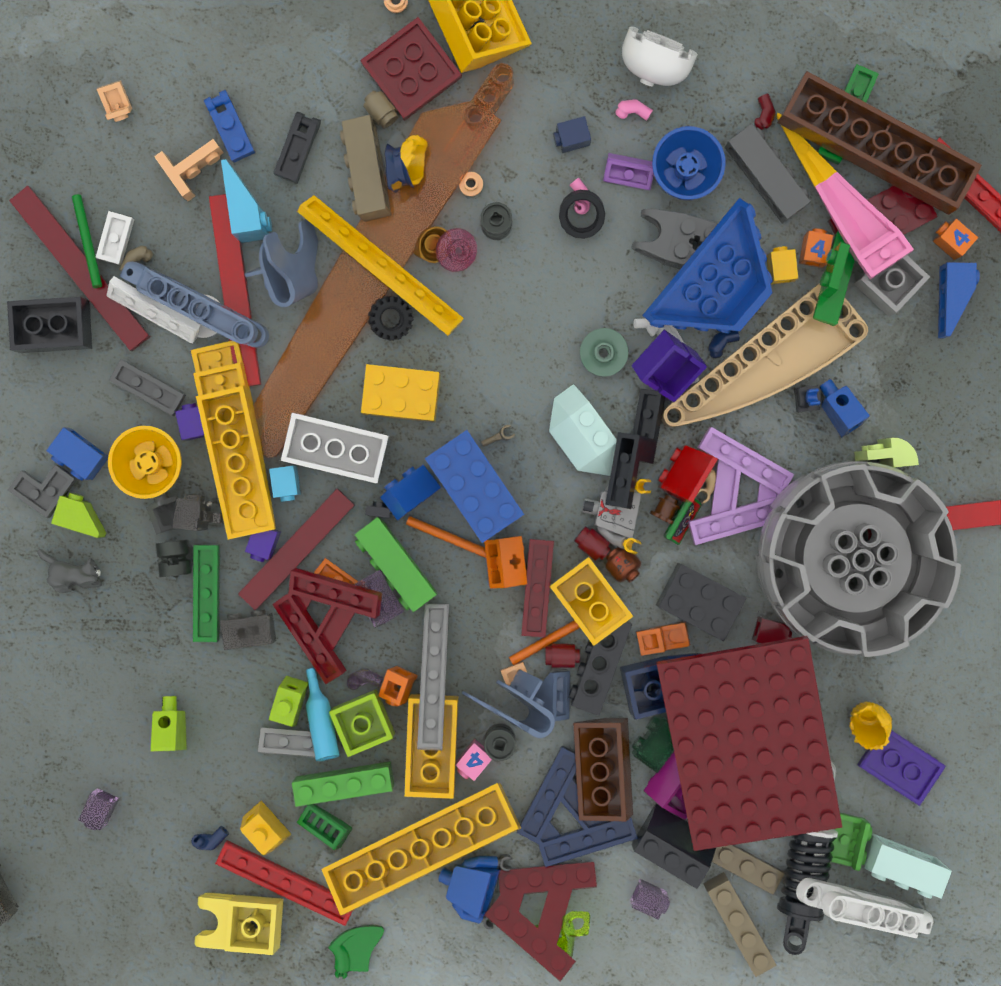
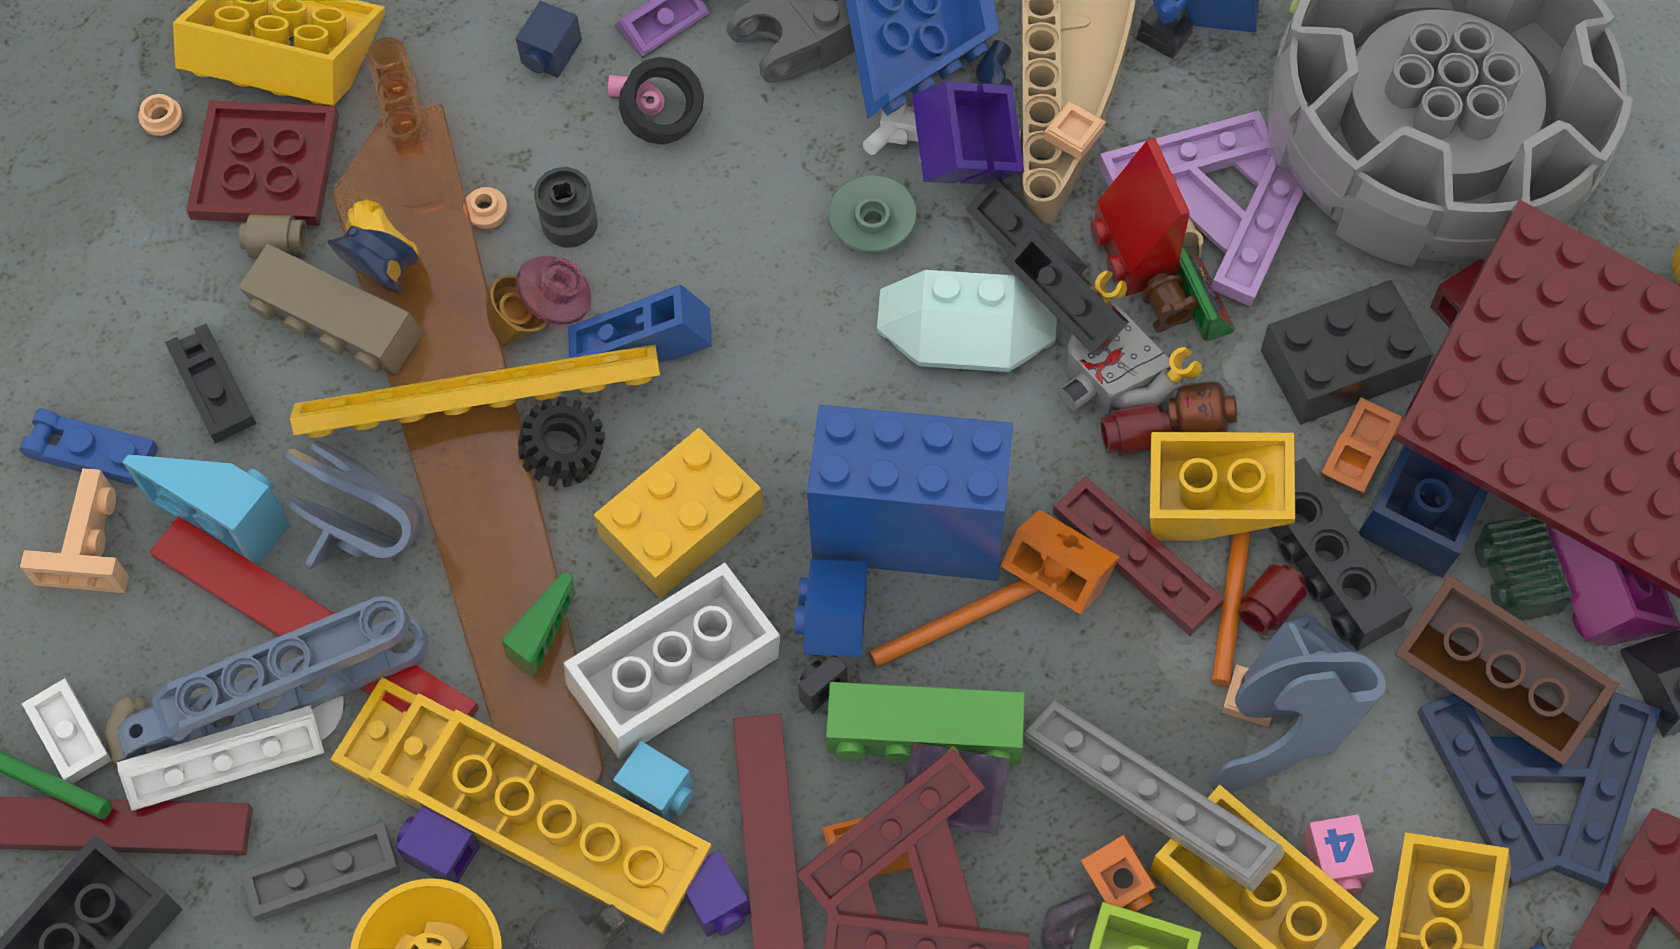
camera: 50 degrees left, 25 degrees down
(298, 385) = (535, 631): none -> green slope
(467, 304) = (669, 319): none -> blue slope
(499, 742) = (1339, 785): pearl dark grey wheel -> none
(711, 408) = (1074, 130): none -> light nougat tile

